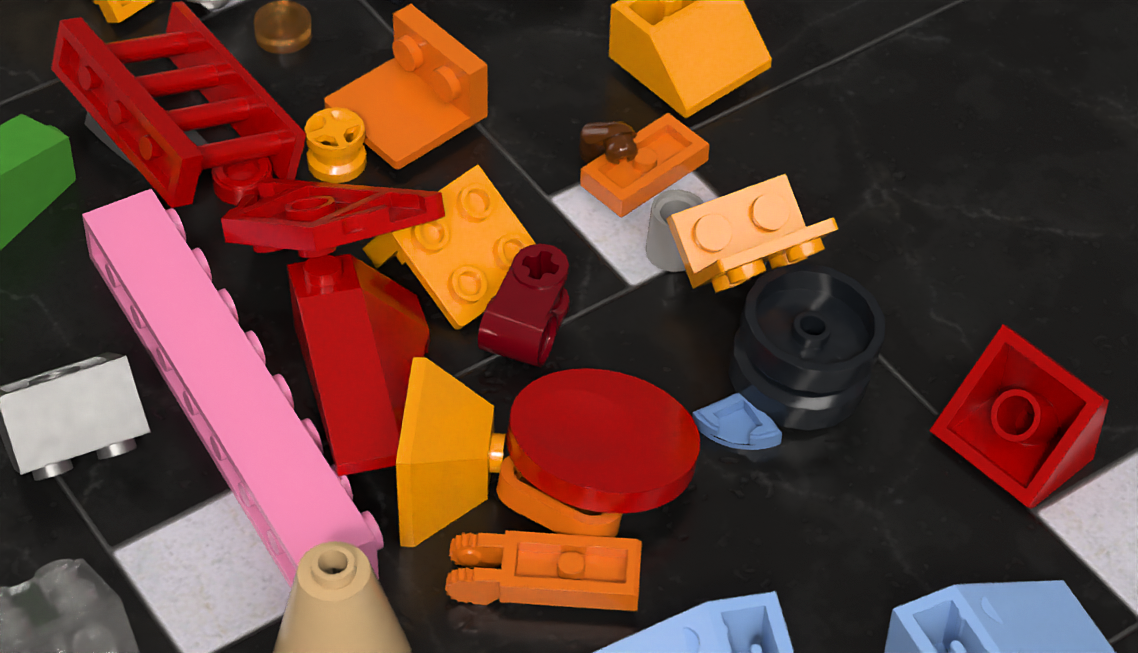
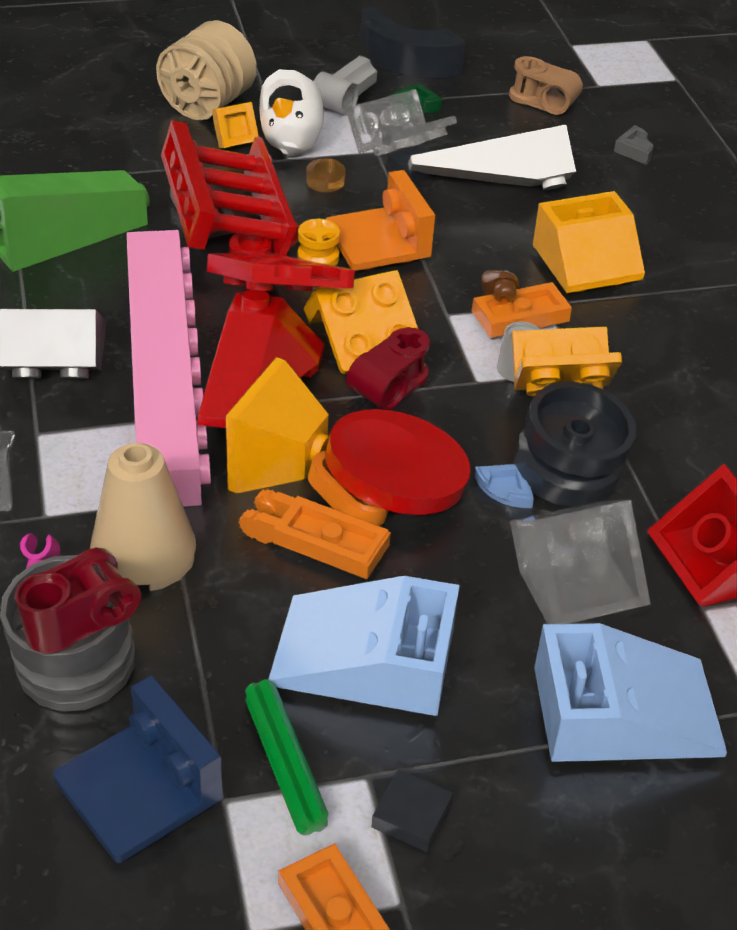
camera: 20 degrees right, 5 degrees down
(879, 499) = (582, 561): none -> clear slope

